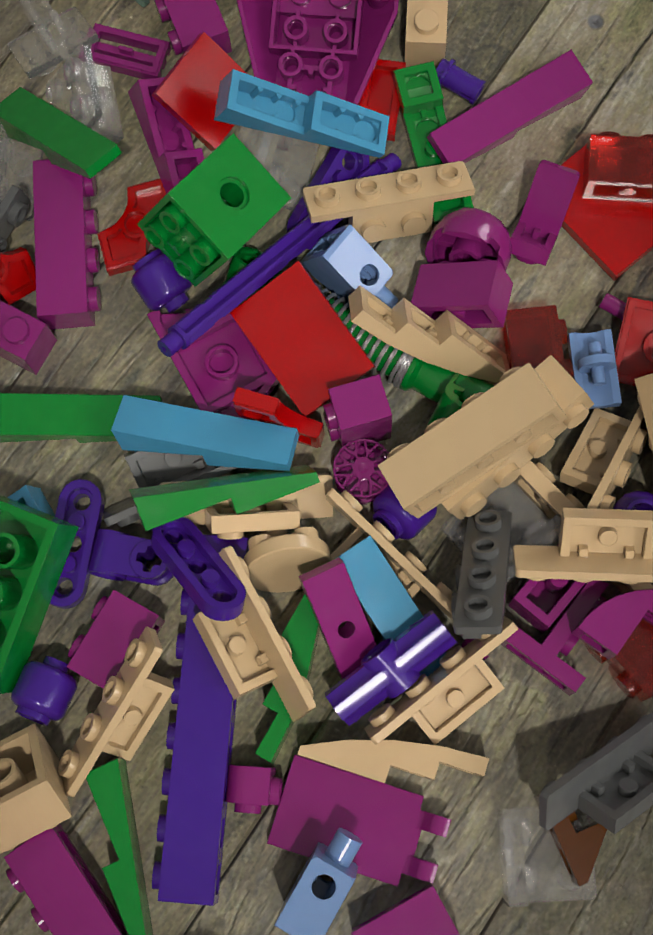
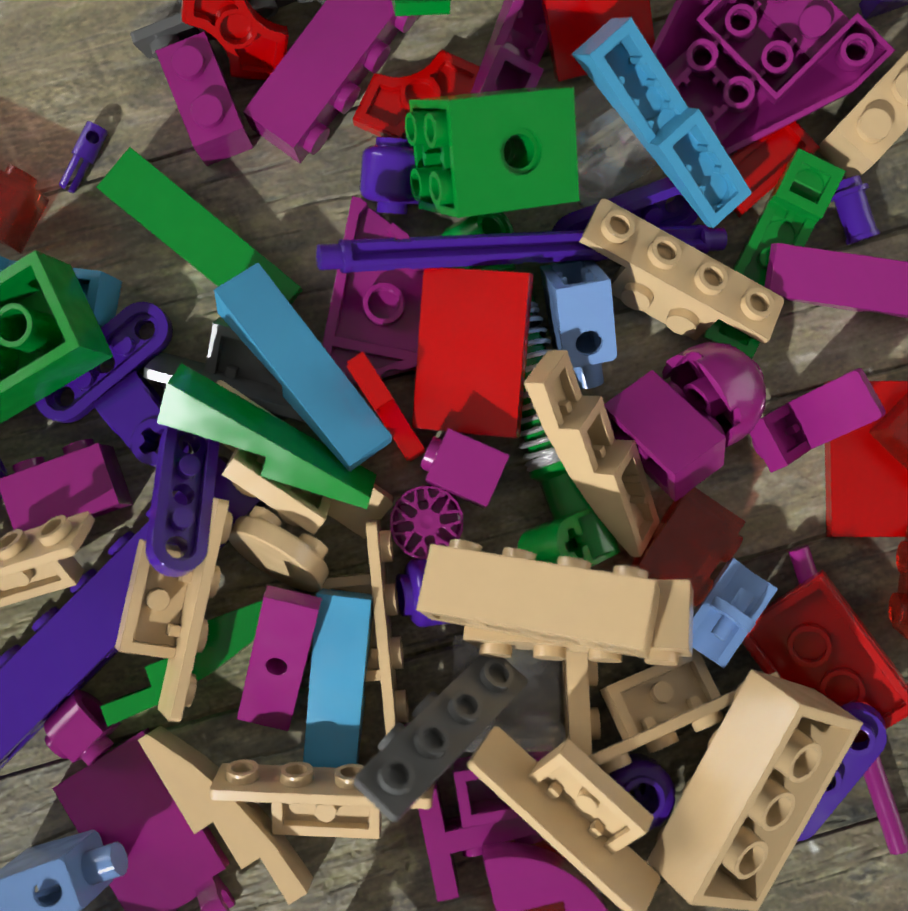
camera: 30 degrees right, 10 degrees up
(390, 668) = (287, 735): dark purple piece -> none

